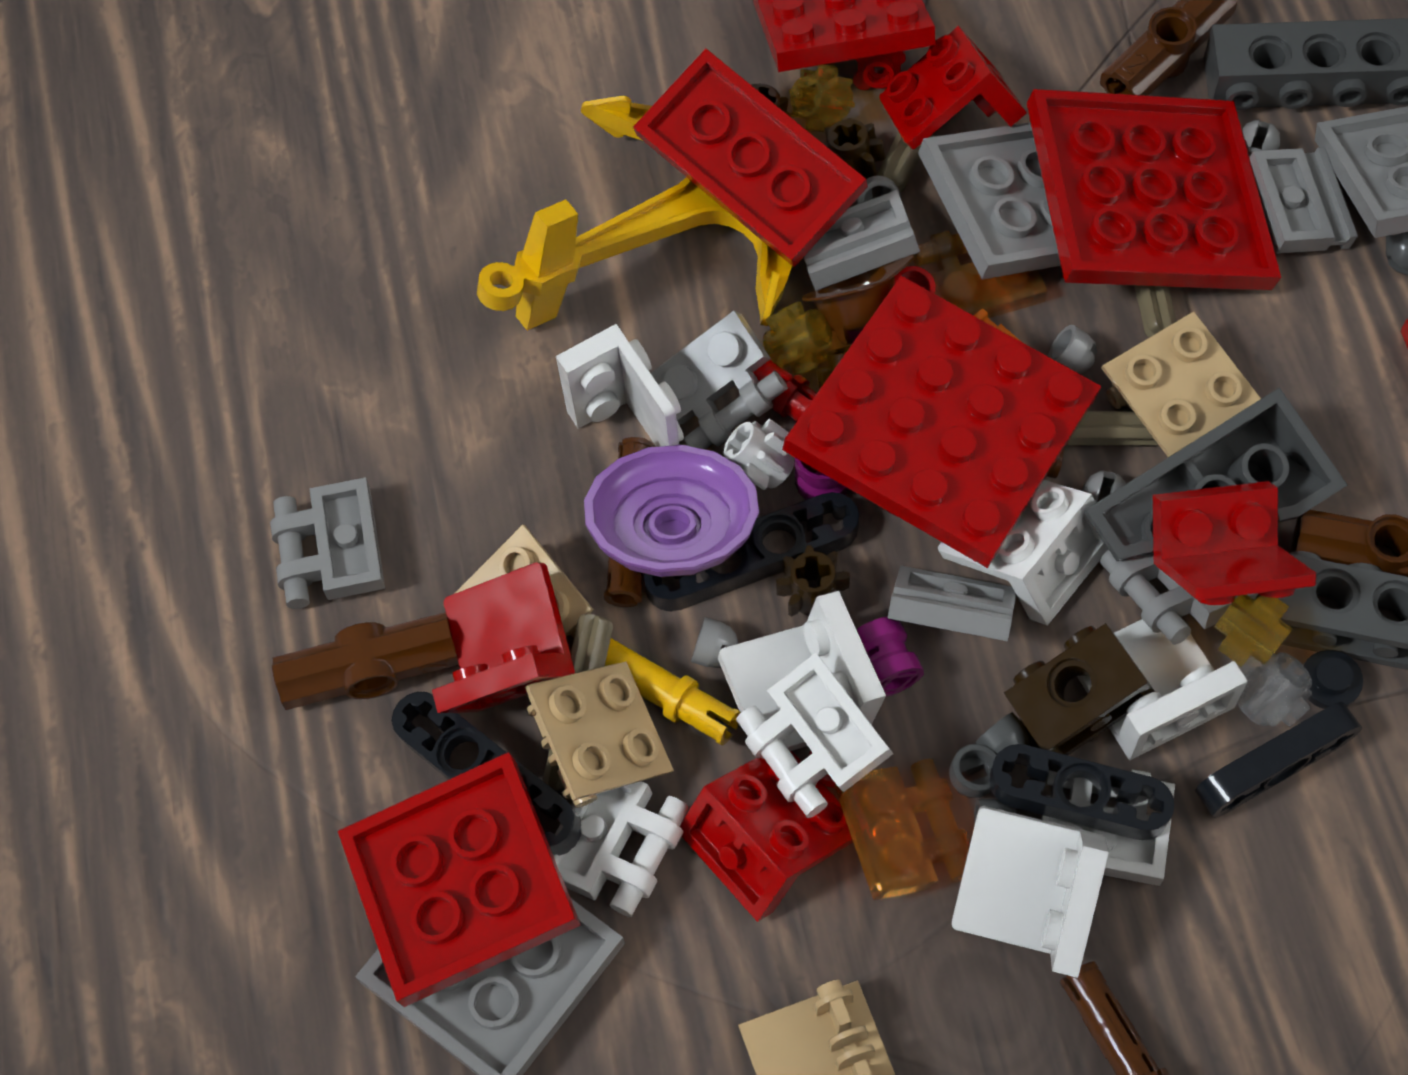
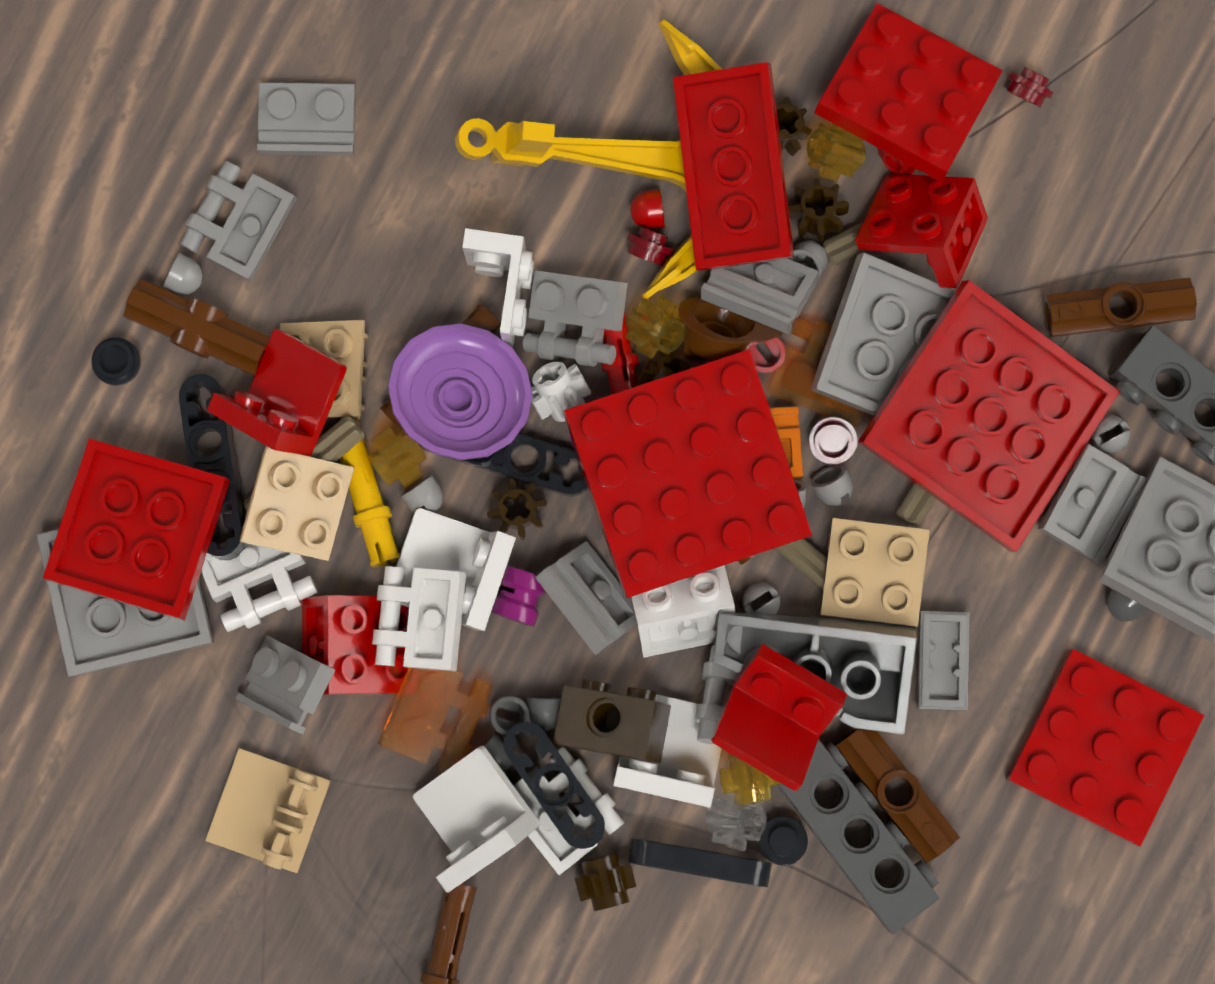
camera: 35 degrees right, 20 degrees up
(307, 756) = (116, 361): none -> black plate
(314, 626) = (184, 276): none -> light grey hinge
(324, 417) = (306, 119): none -> light grey plate
(659, 624) = (396, 457): none -> clear yellow gear
(704, 259) = (648, 209): none -> red hinge
(730, 285) = (649, 245): none -> dark red plate
(734, 912) = (285, 684): none -> light grey plate
(1036, 316) = (833, 439): none -> plate
(1212, 848) = (605, 882): none -> dark brown gear
(1325, 416) = (943, 660): none -> light grey plate

